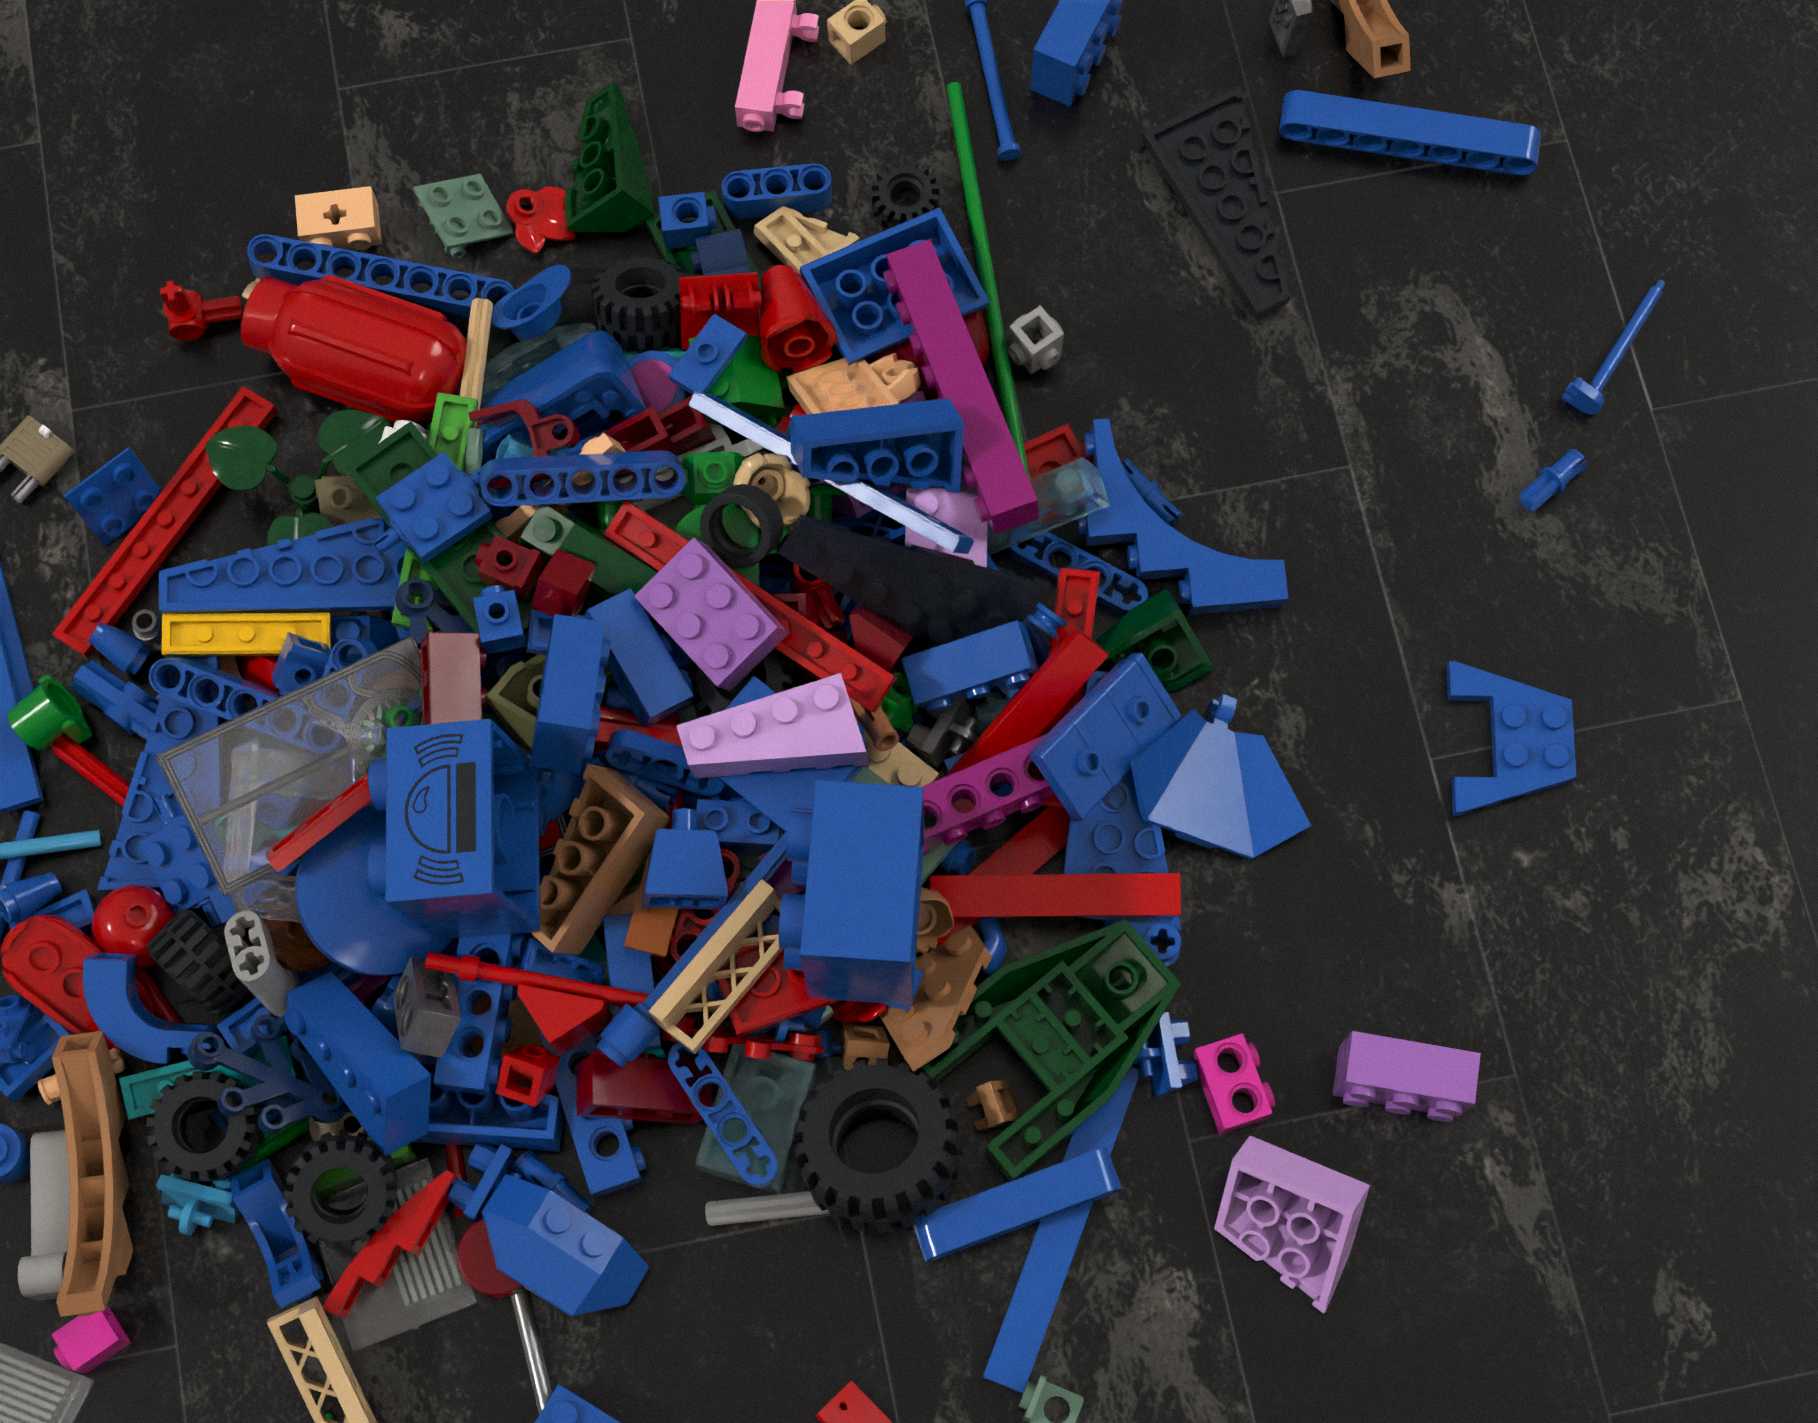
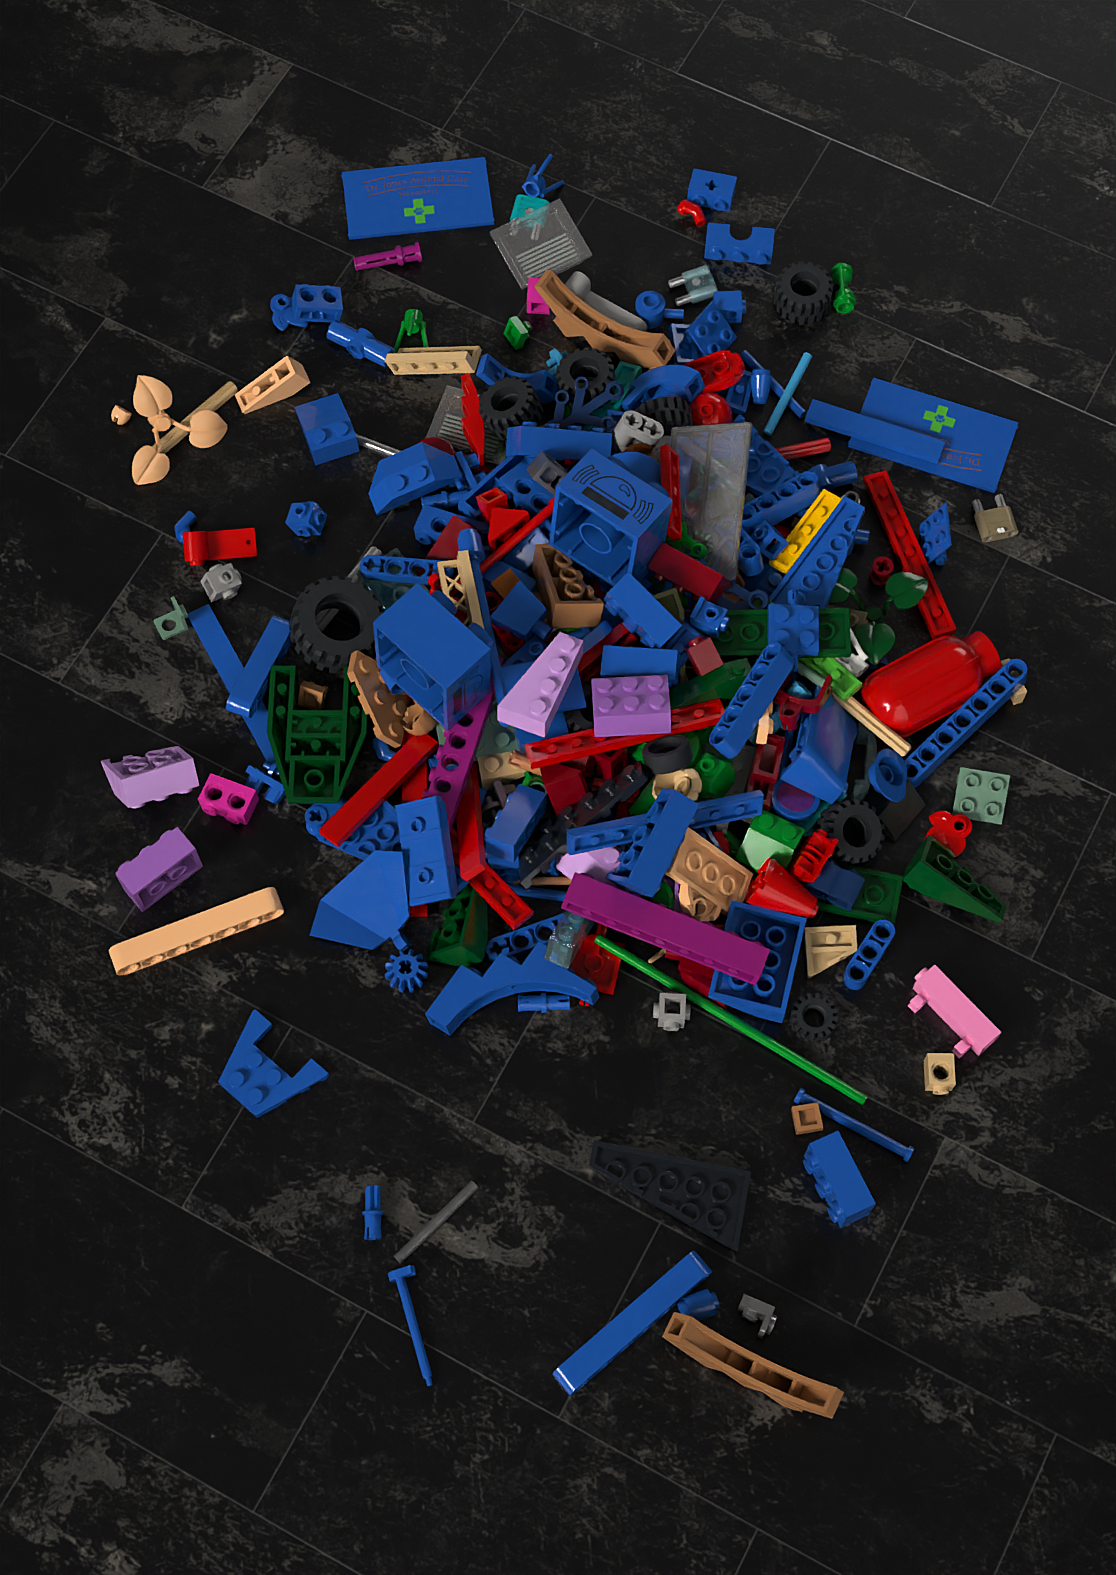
camera: 130 degrees right, 5 degrees down
(48, 714) = (841, 443): green piece -> none
(120, 647) = (861, 487): blue cone -> none
(183, 1316) = (517, 332): none -> green tile
(191, 314) = (1018, 634): red axle -> none
(222, 532) = (877, 567): none -> dark red bush
(339, 218) = (1017, 745): light nougat brick -> none
(516, 576) = (733, 647): dark red brick -> none
(678, 207) = (887, 879): blue brick -> none
(708, 356) = (783, 824): blue plate -> none
(742, 1348) = (306, 518): none -> blue brick
(939, 1379) = (221, 582): none -> light grey brick
(1032, 117) = (807, 1118): none -> medium nougat tile
(1046, 620) = (508, 876): blue bush -> none
(1265, 667) = (406, 961): none -> blue gear
(1332, 79) = (699, 1305): none -> blue brick
(1431, 968) = (196, 931): none -> light nougat beam
(1495, 411) = (436, 1222): none -> flat silver bar

